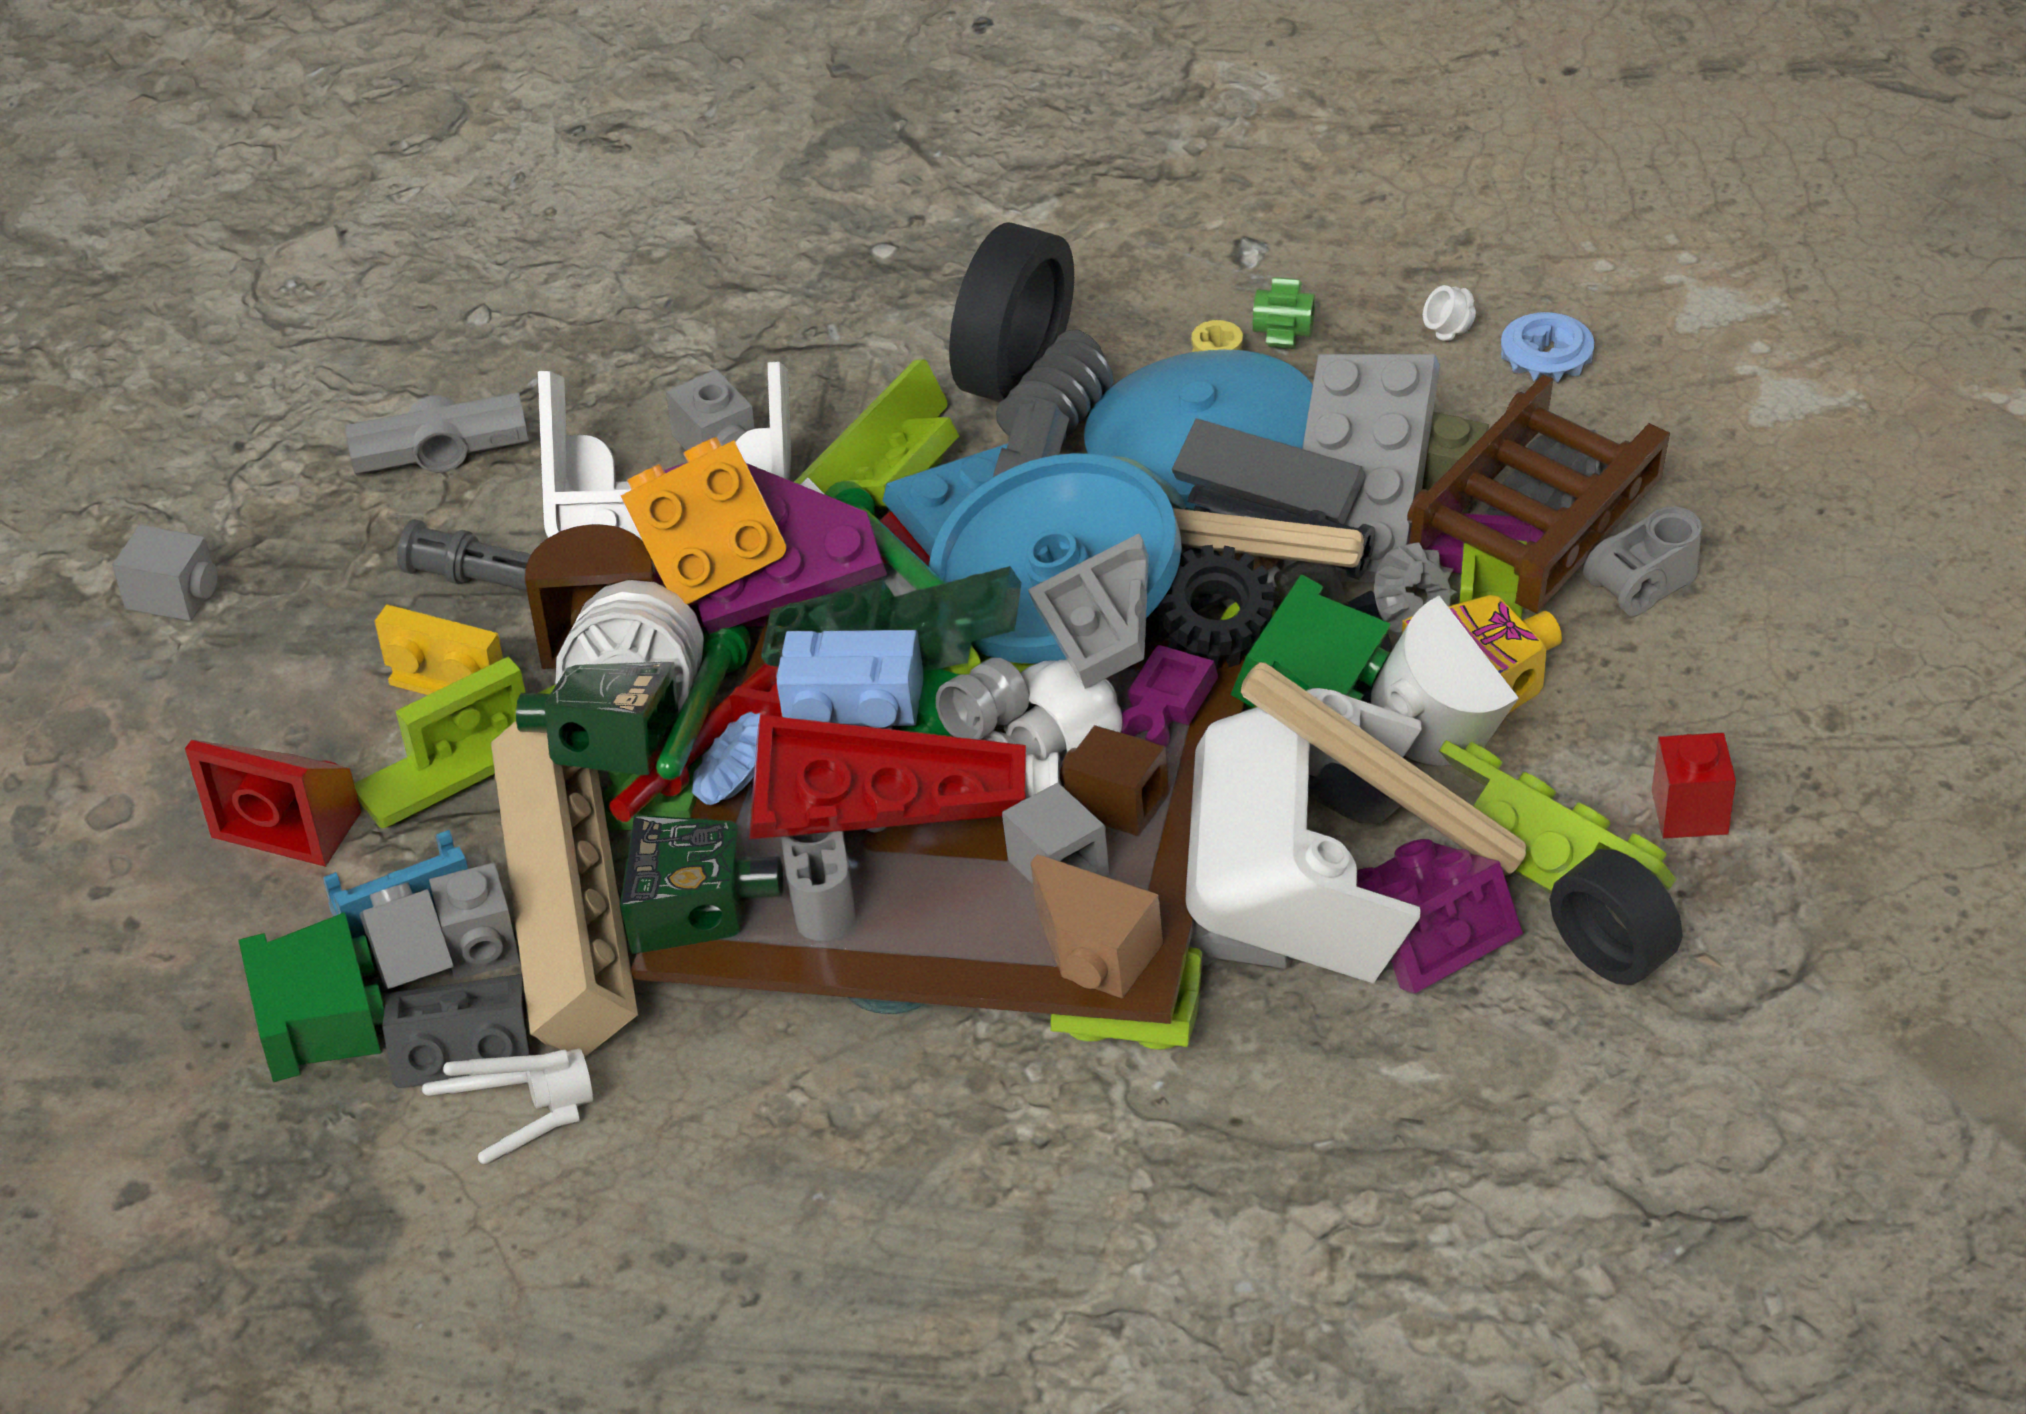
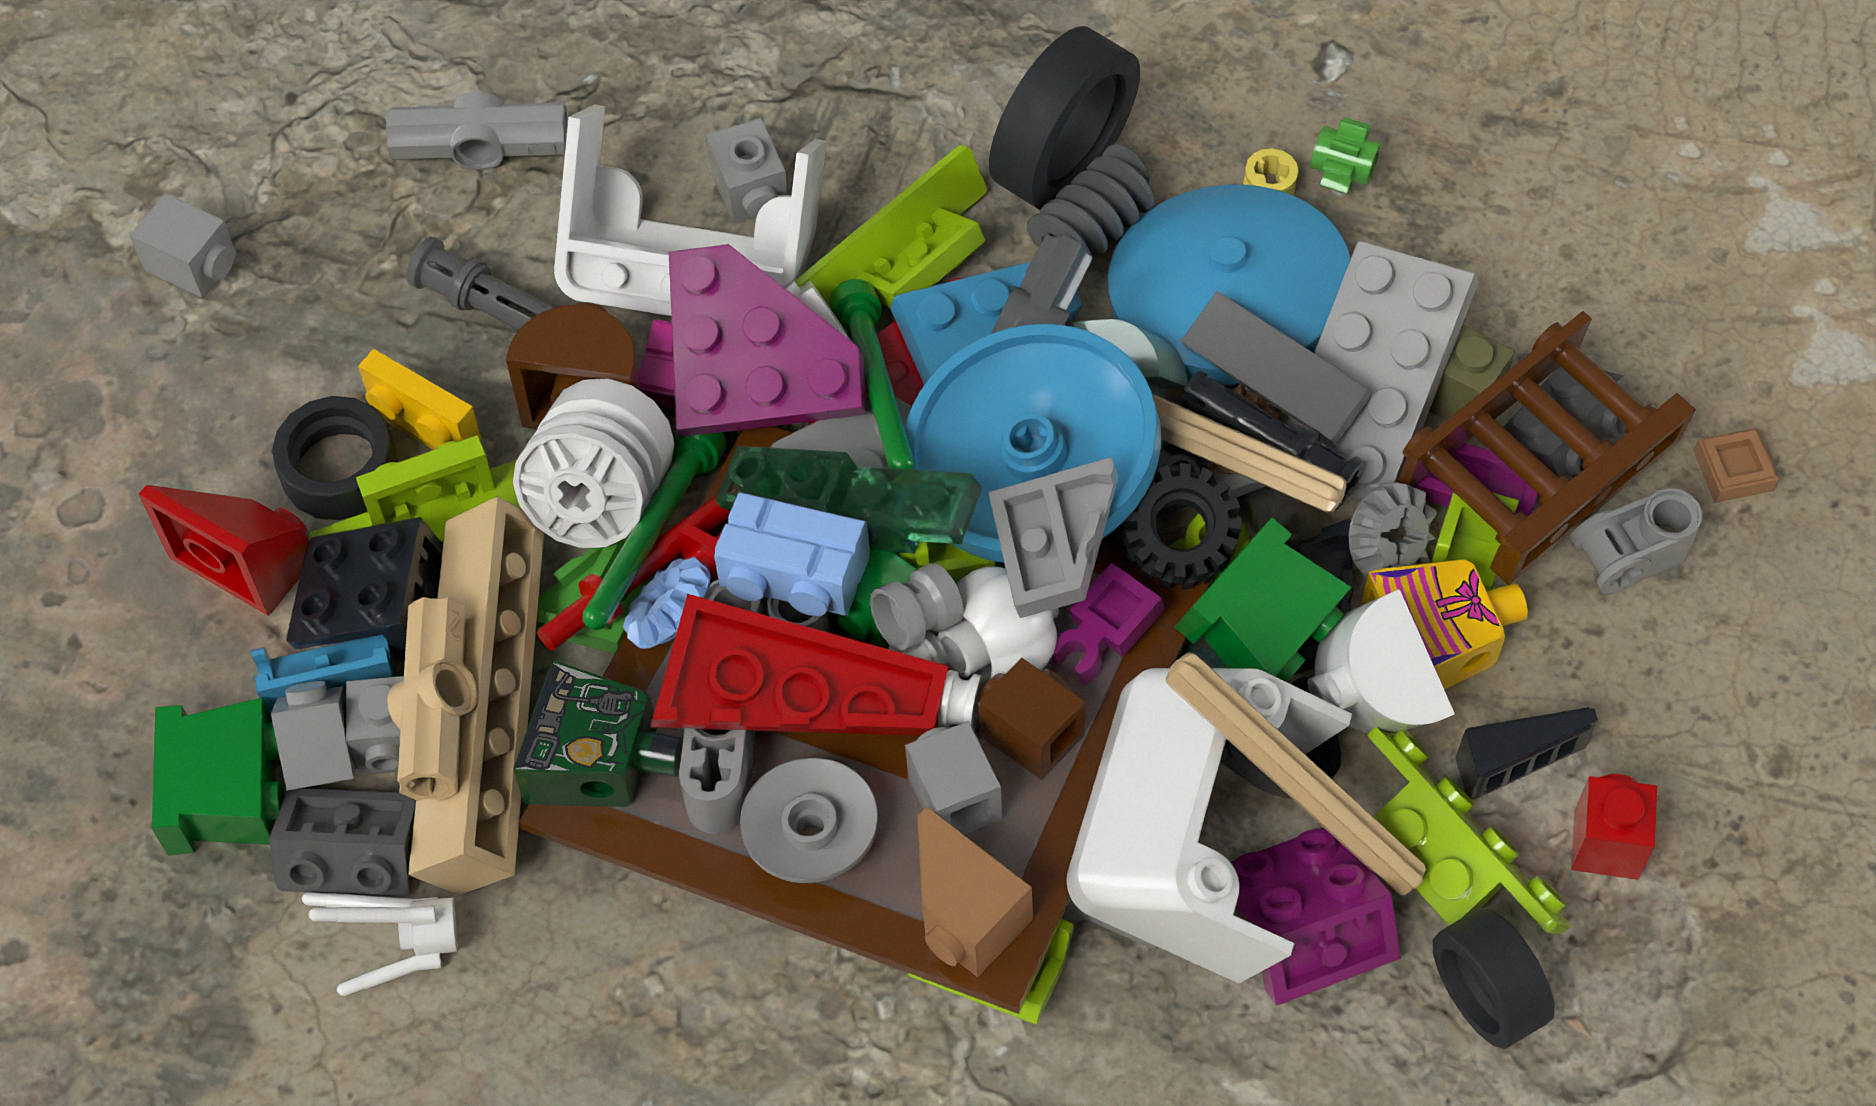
camera: 10 degrees right, 15 degrees up
(346, 688) = (311, 424): none -> black tyre
(427, 801) = (363, 582): none -> black bracket
(522, 870) = (432, 699): none -> tan piece
(605, 715) = (550, 539): dark green torso -> none
(703, 520) = (691, 327): light orange bracket -> none
(922, 898) = (805, 795): none -> light grey dish
(1449, 312) = (1514, 185): white plate -> none
(1528, 335) = (1594, 225): light blue gear -> none
(1586, 741) = (1510, 750): none -> black slope
(1720, 494) = (1736, 465): none -> medium nougat tile

